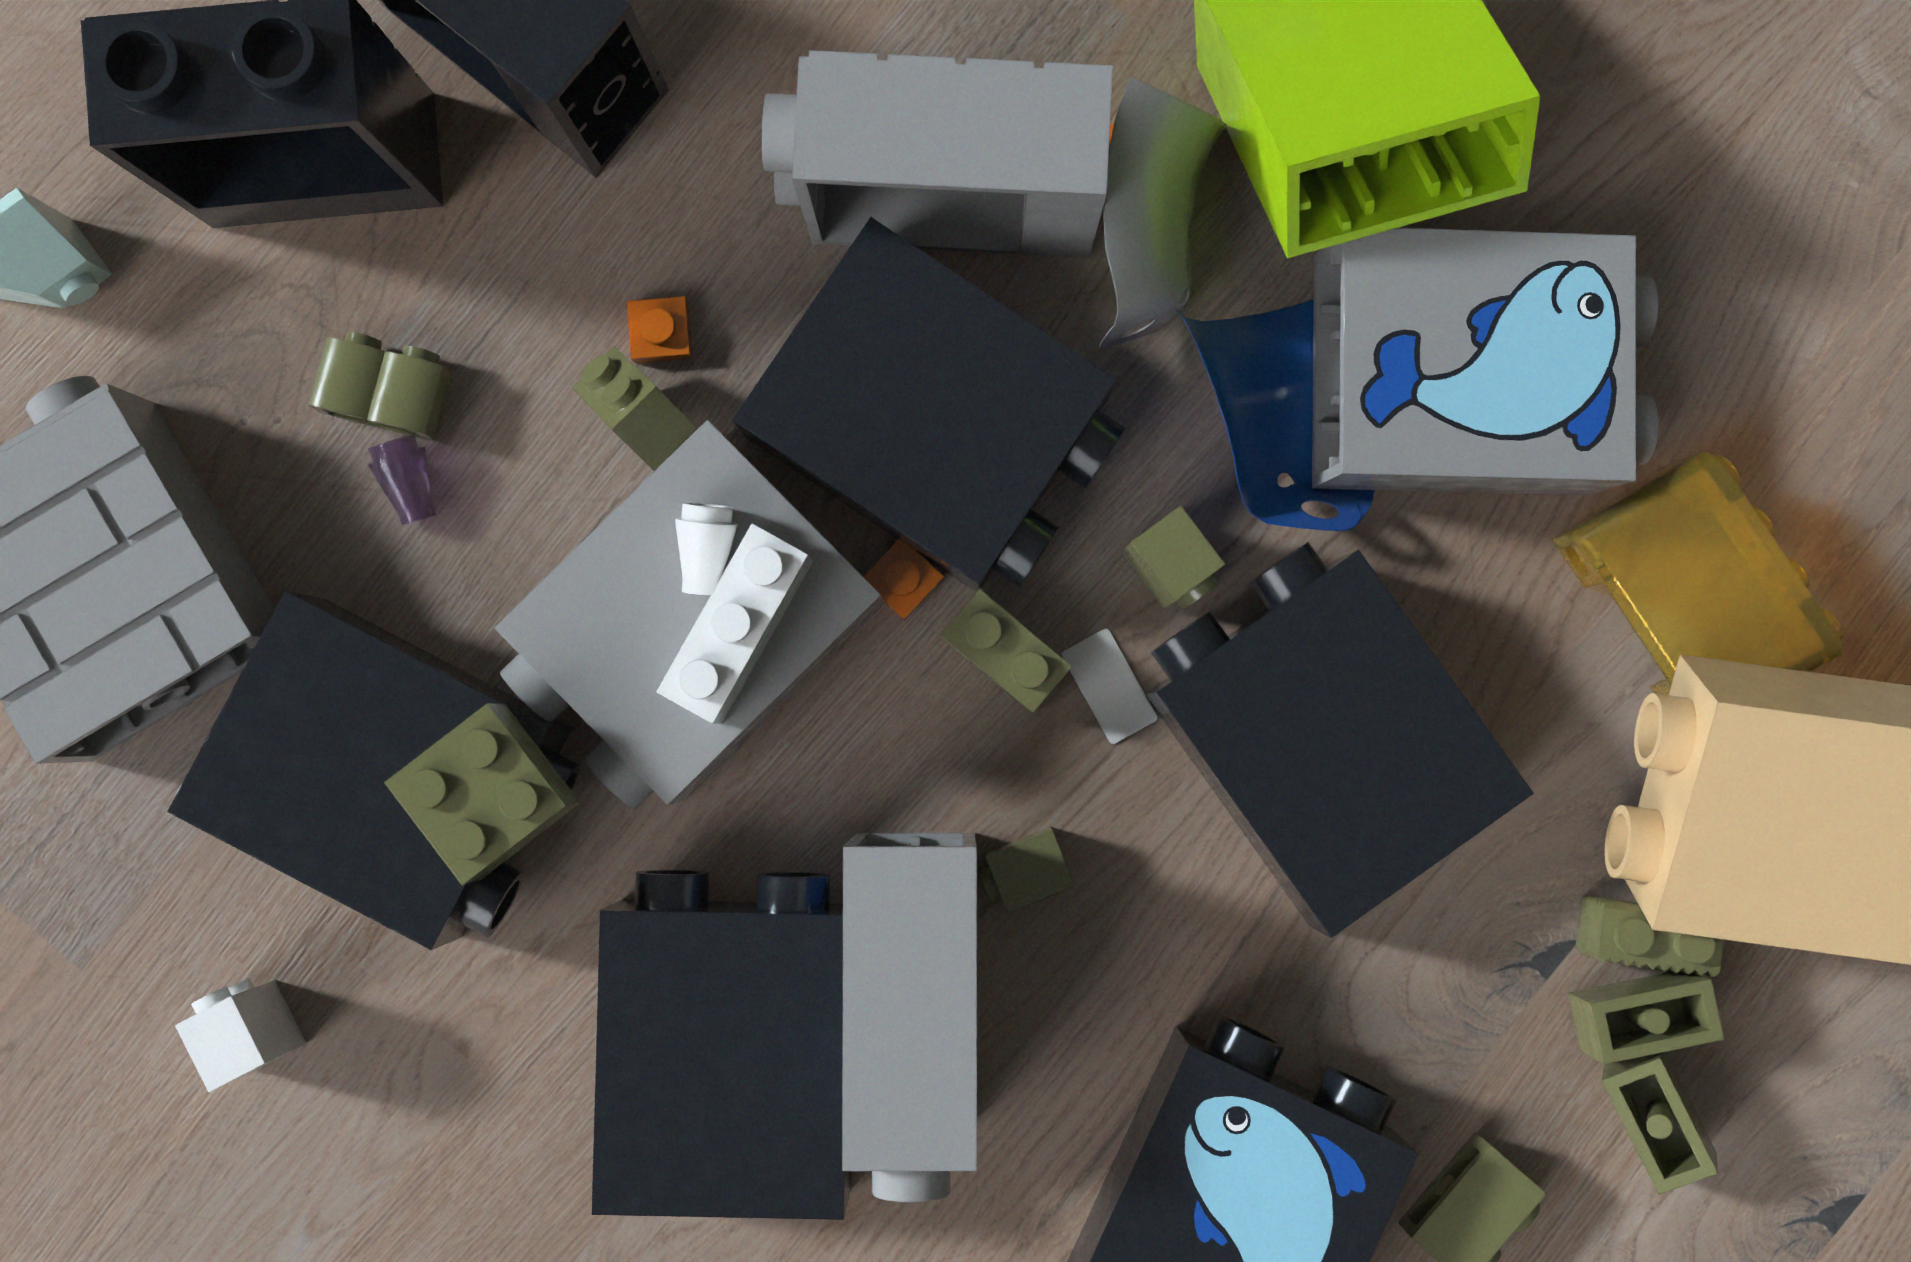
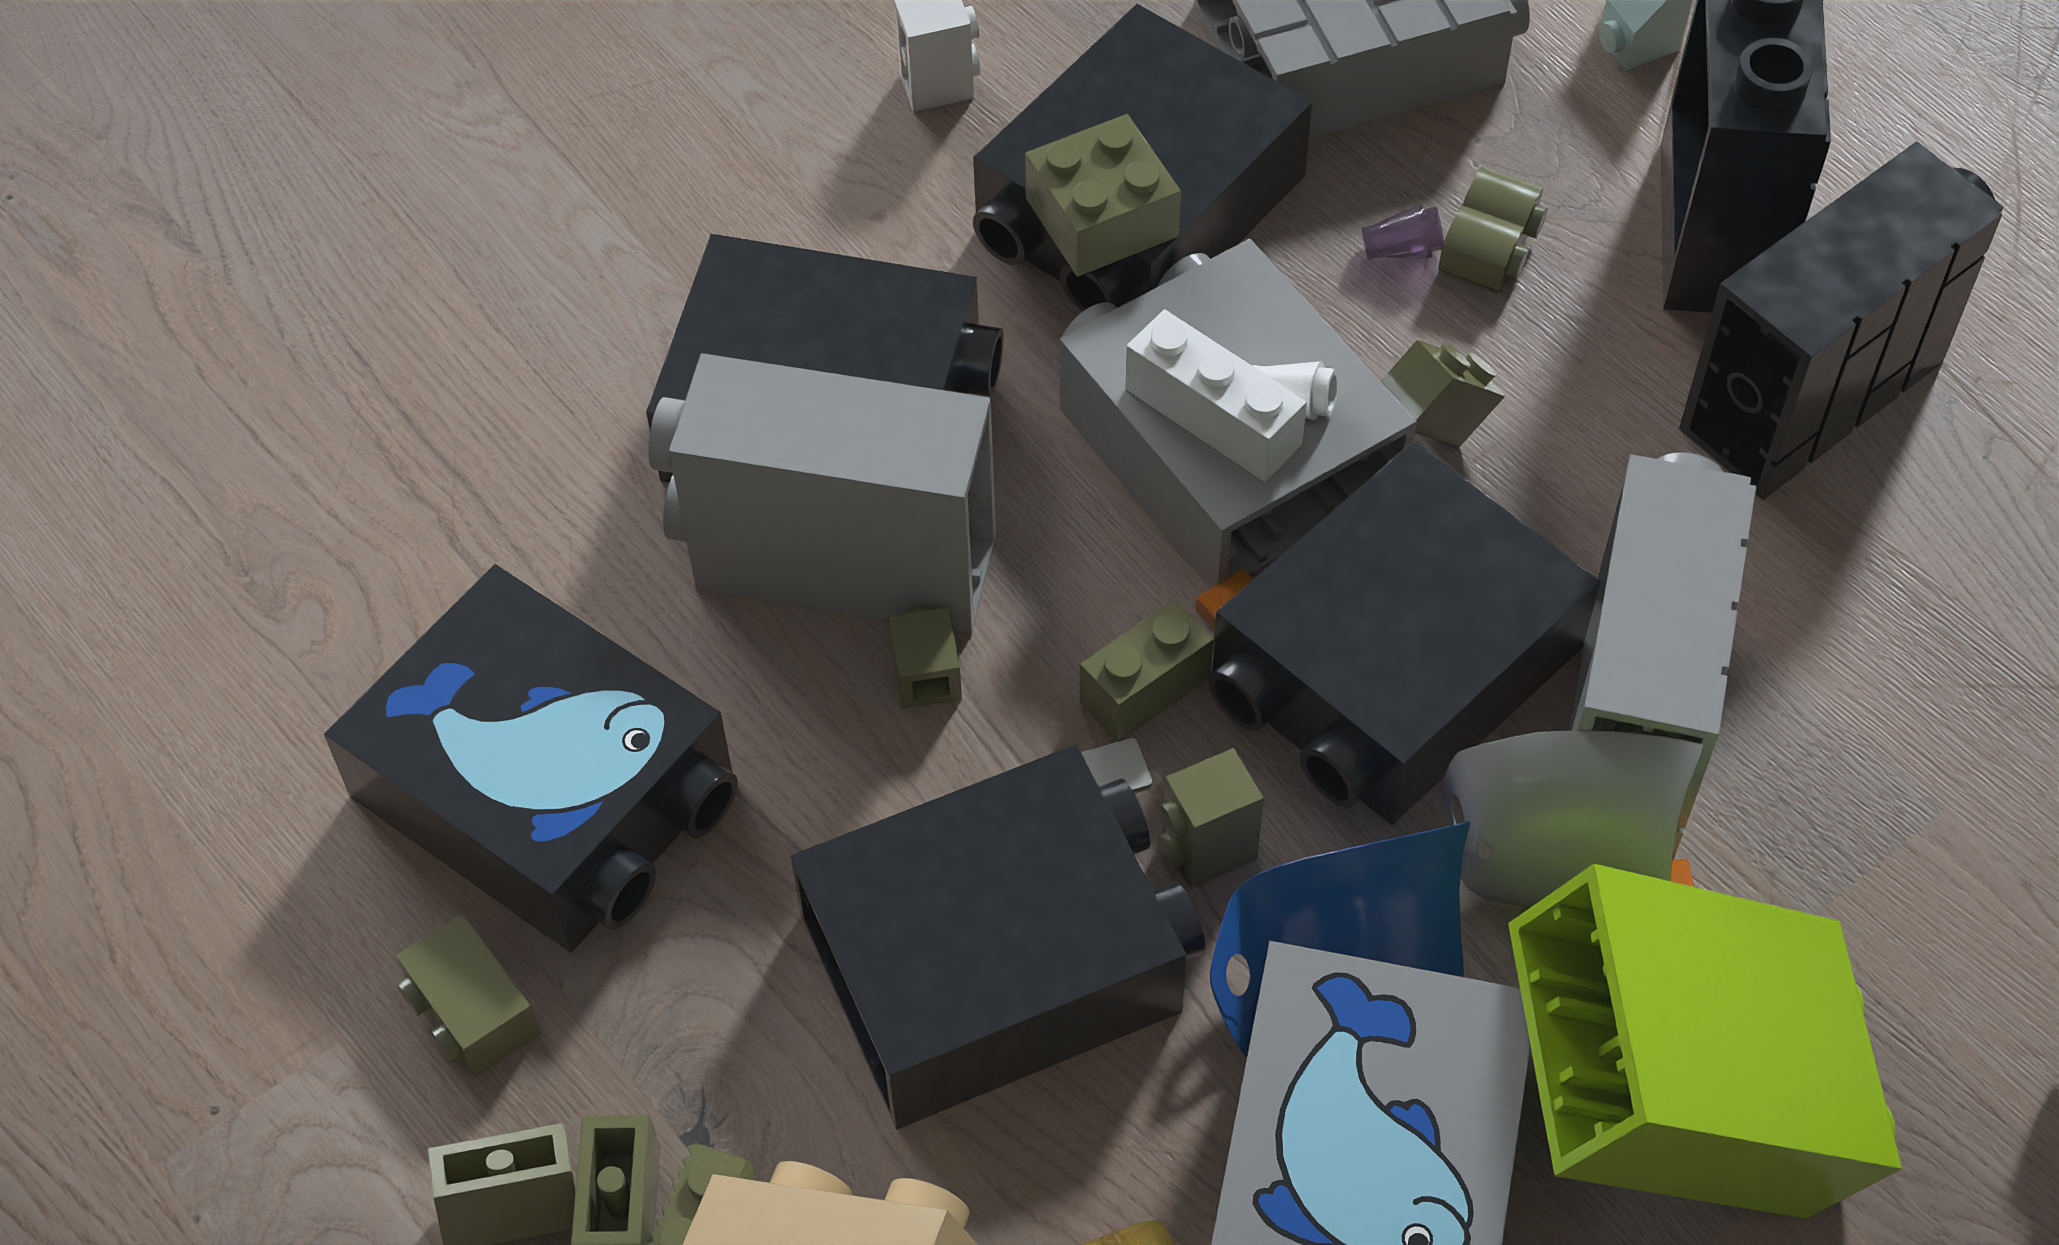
camera: 100 degrees right, 30 degrees down
(659, 329) = (1519, 451): orange plate -> none

